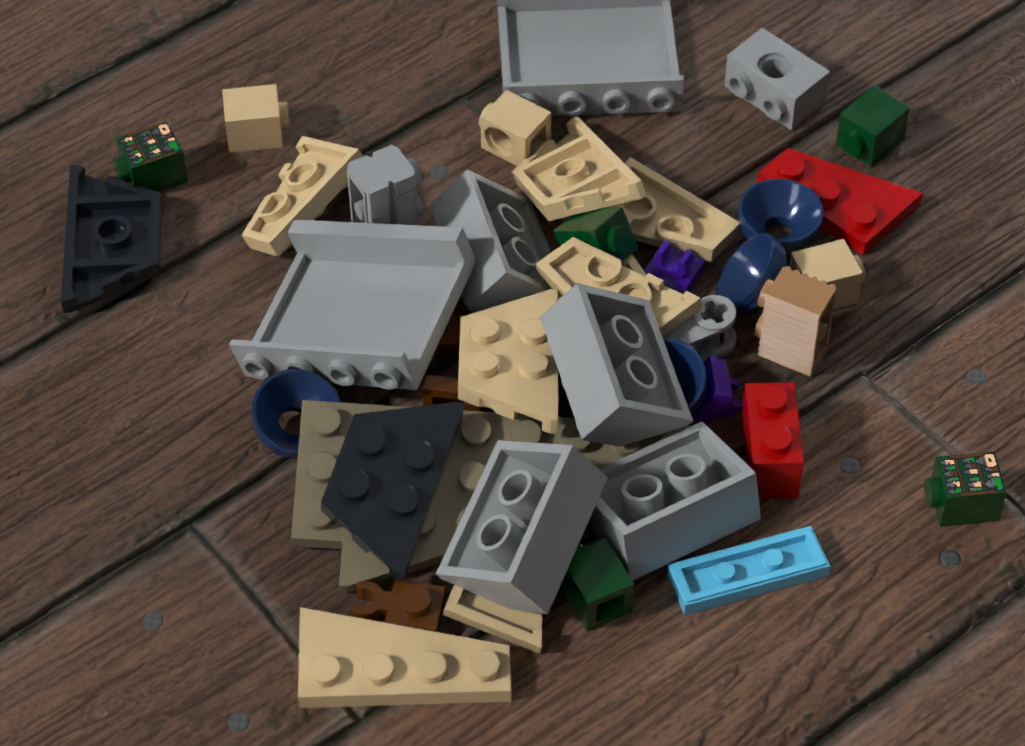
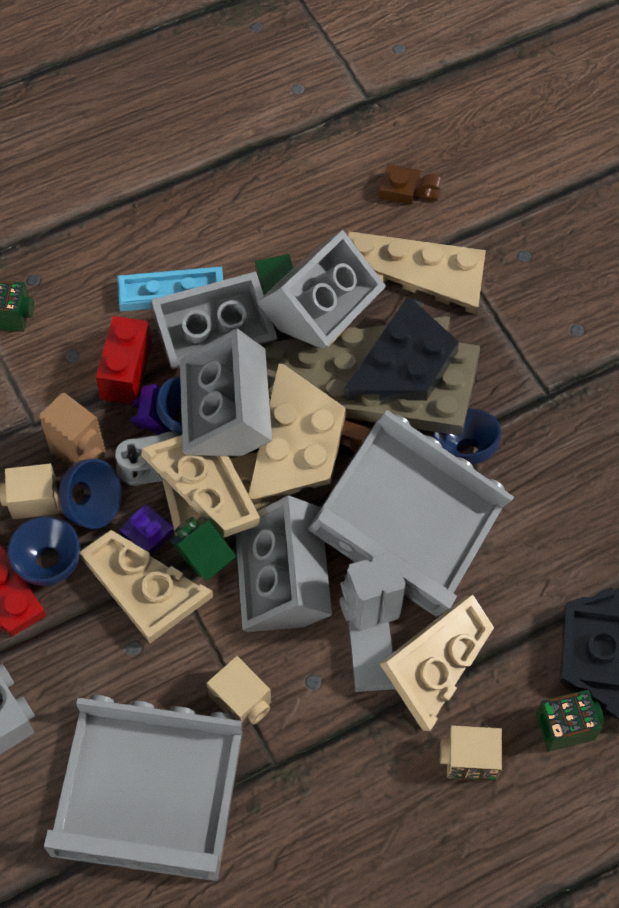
camera: 170 degrees left, 10 degrees up
(407, 605) = (396, 293): reddish brown plate -> none
(576, 175) = (202, 619): tan wing -> none

